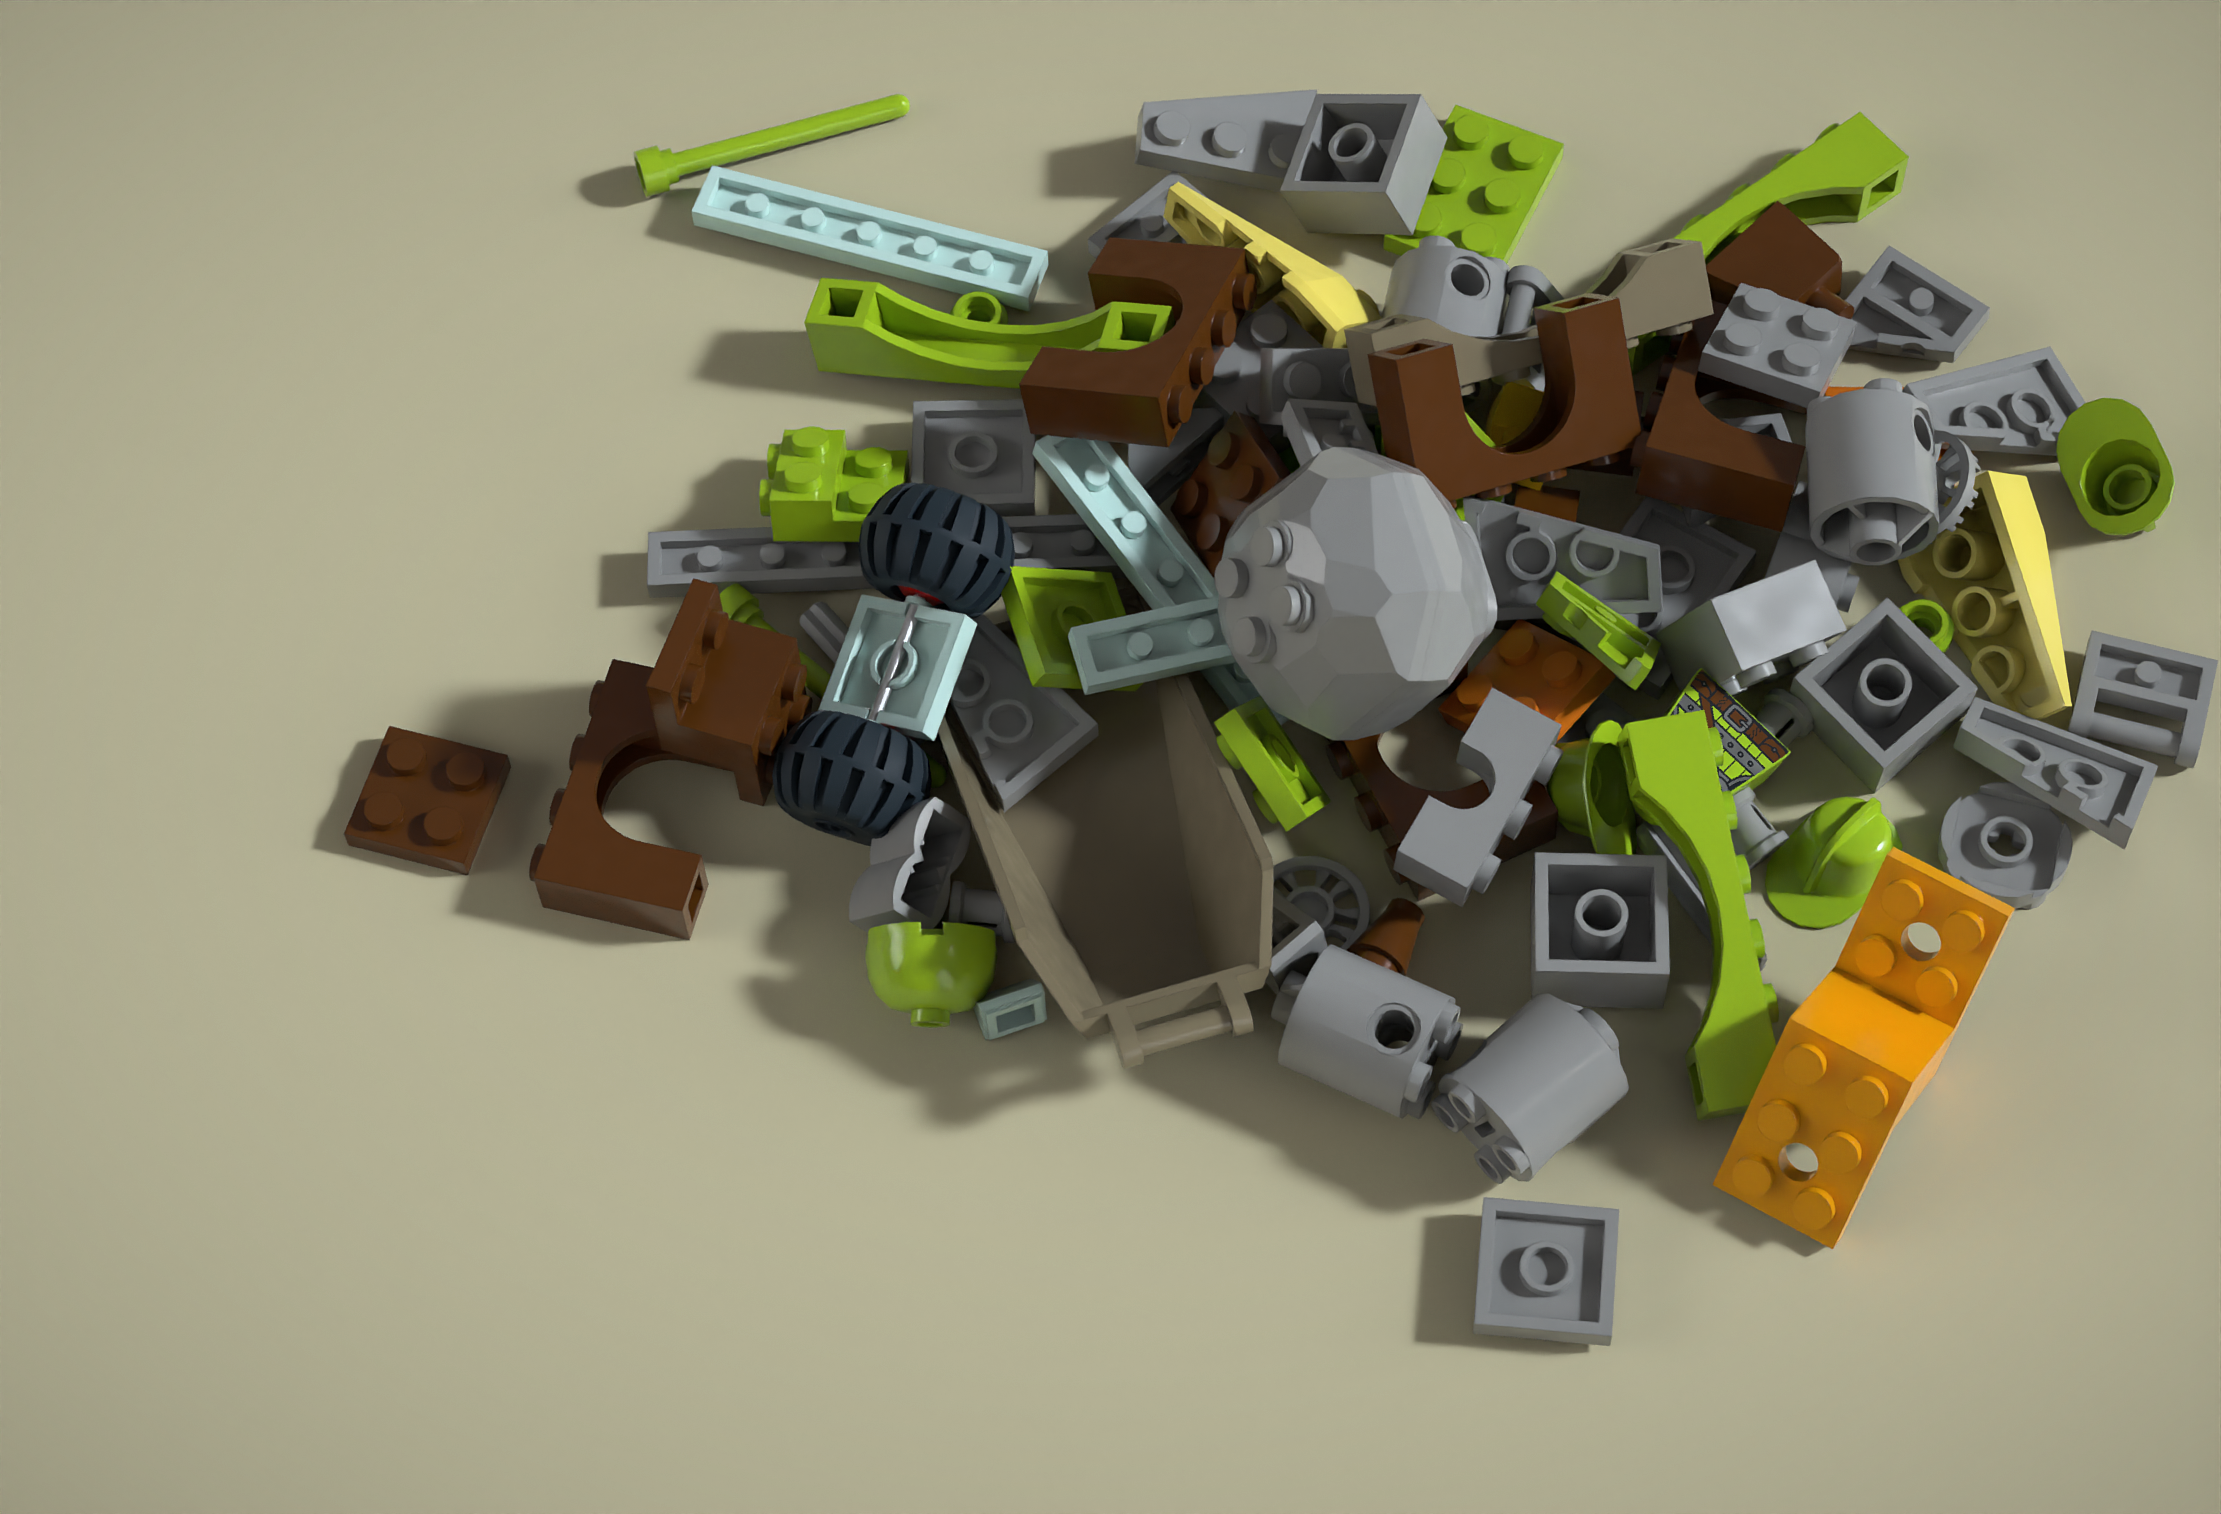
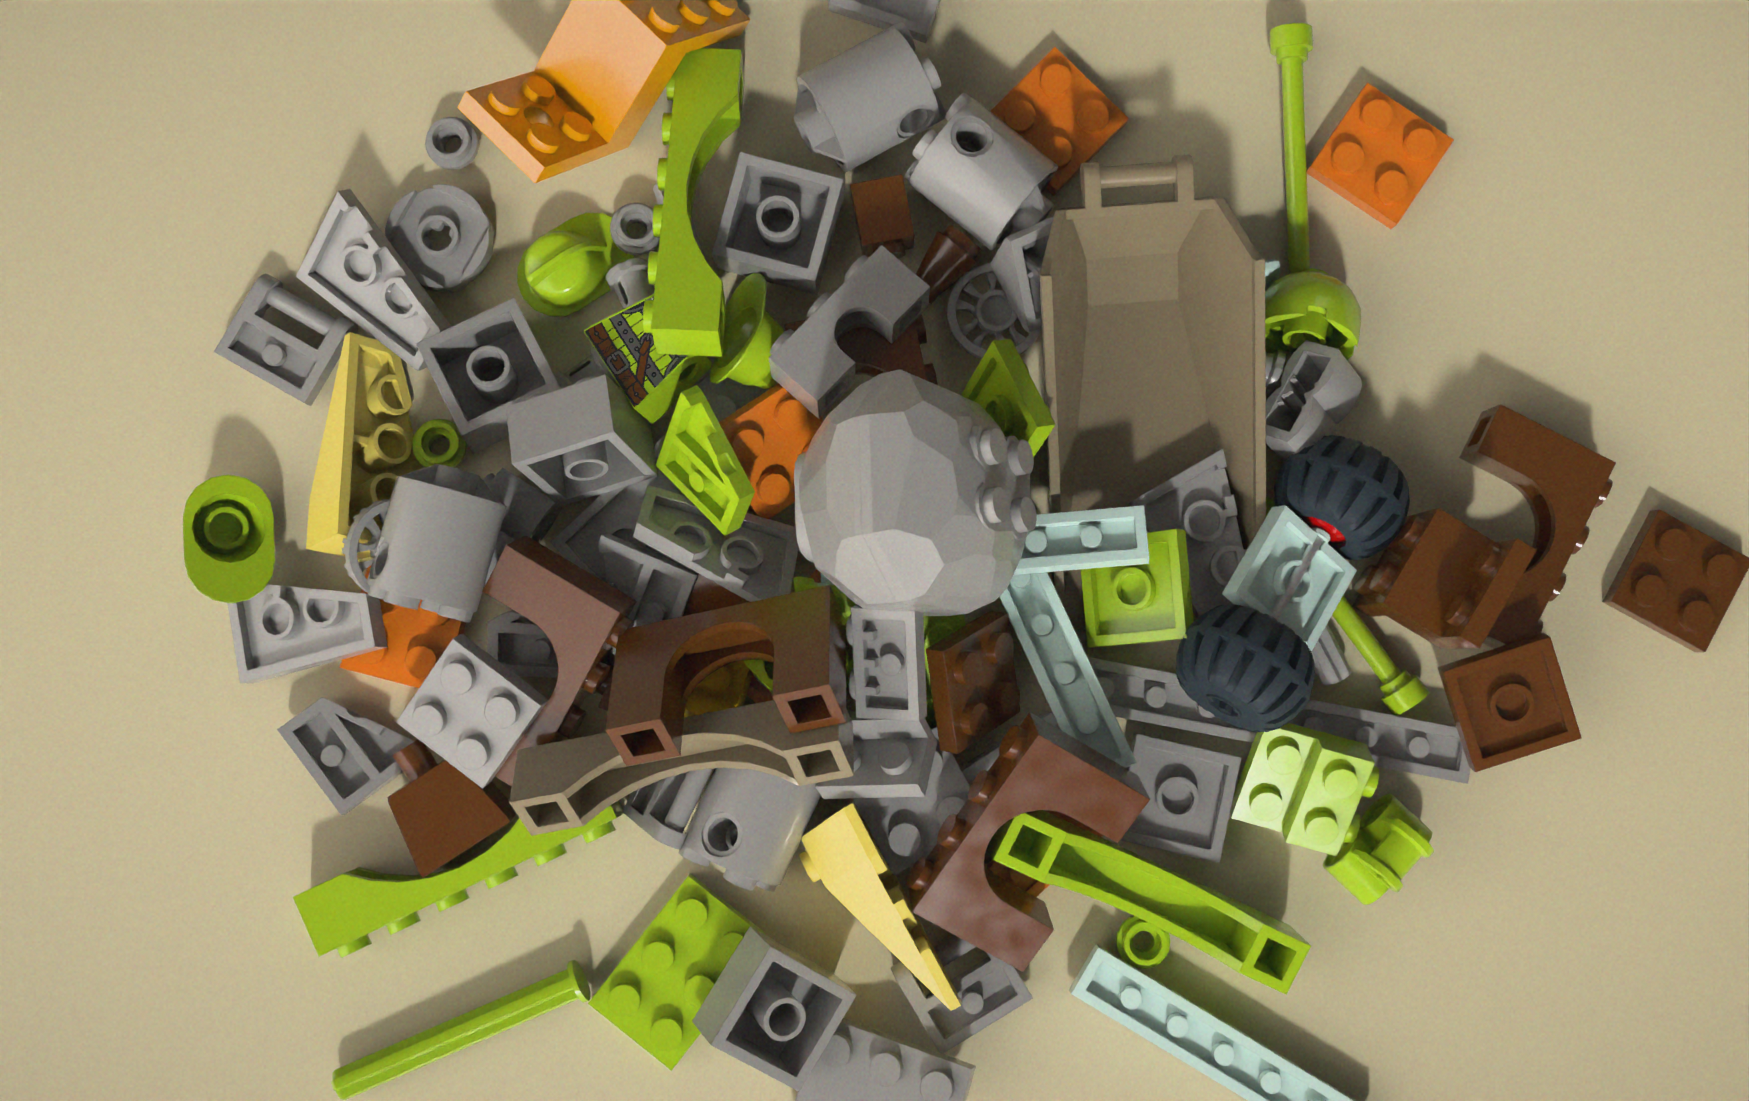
camera: 170 degrees left, 25 degrees up
(617, 598) = (1509, 702): none -> reddish brown plate
(732, 448) = (1383, 851): none -> lime piece
(873, 1198) = (1379, 156): none -> orange plate
(1013, 1297) = (1291, 47): none -> lime piece
(1293, 1149) = (1061, 115): none -> orange plate
(1478, 974) = (883, 215): none -> reddish brown brick
(1612, 505) = (654, 581): none -> light grey wing
(1685, 96) = (461, 1031): none -> lime axle
(1781, 893) = (626, 216): none -> light grey plate
(2037, 942) = (441, 133): none -> light grey plate

